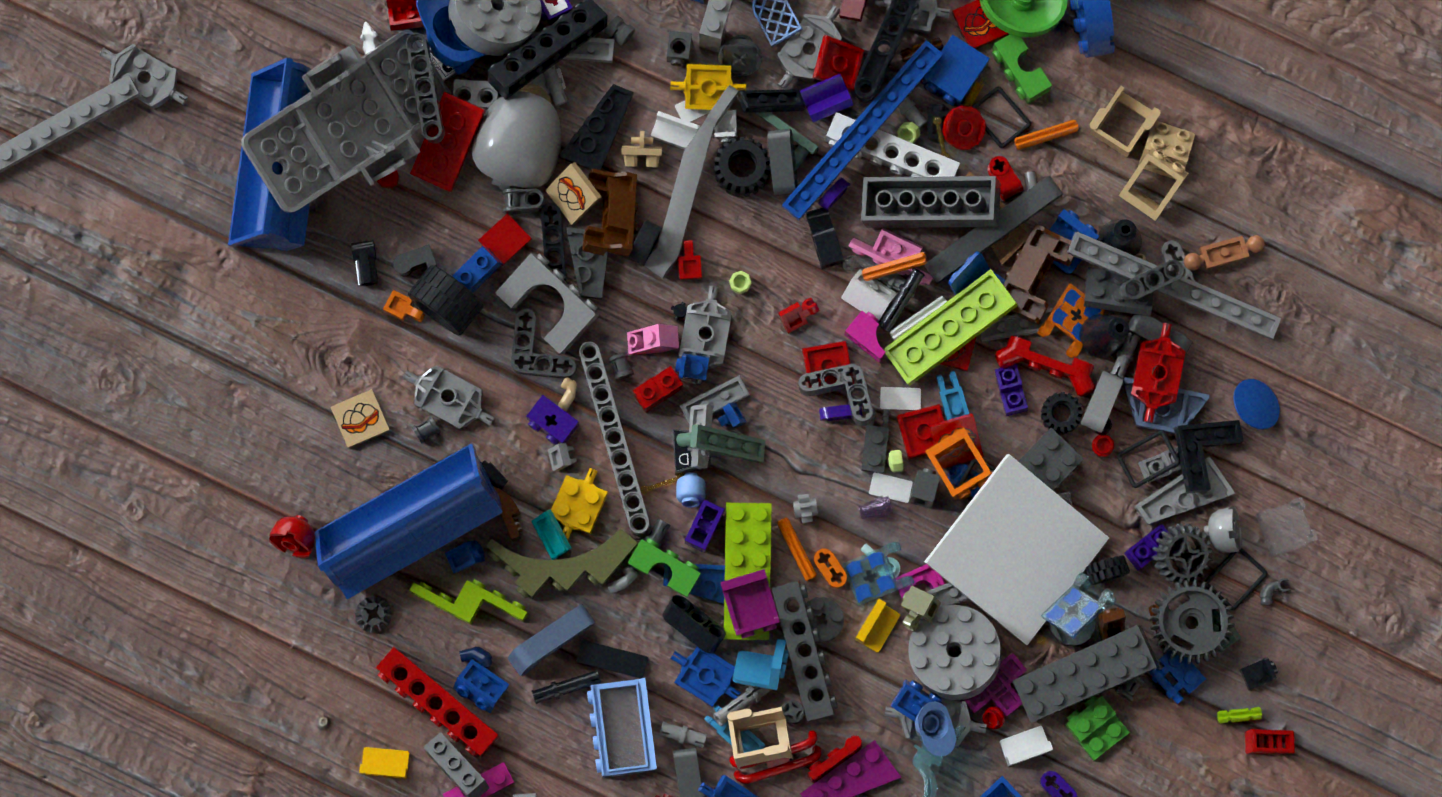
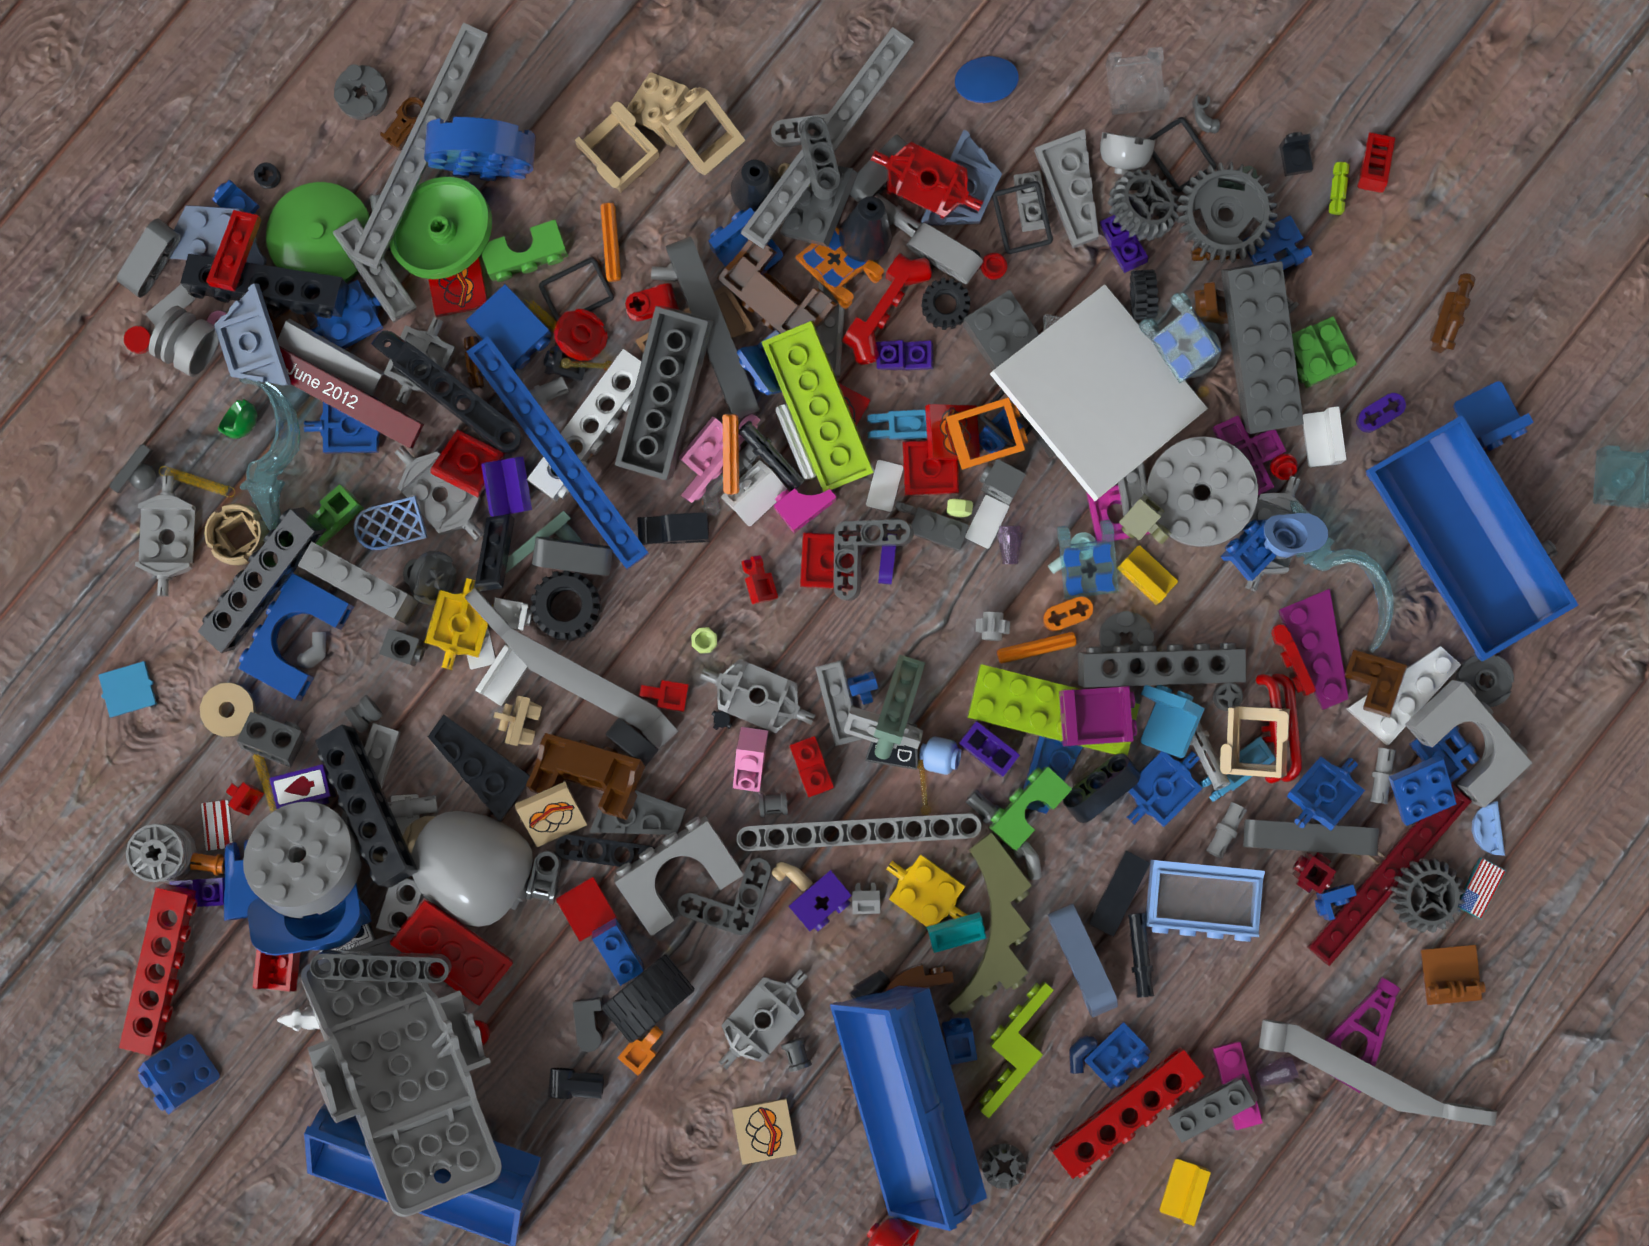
camera: 70 degrees left, 5 degrees up
(692, 366) = (794, 719): blue bracket -> none
(834, 194) = (624, 505): dark purple beam -> none
(909, 131) = (570, 400): yellowish green tile -> none
(1190, 446) = (1017, 164): black plate -> none
(1224, 252) = (799, 72): nougat plate -> none

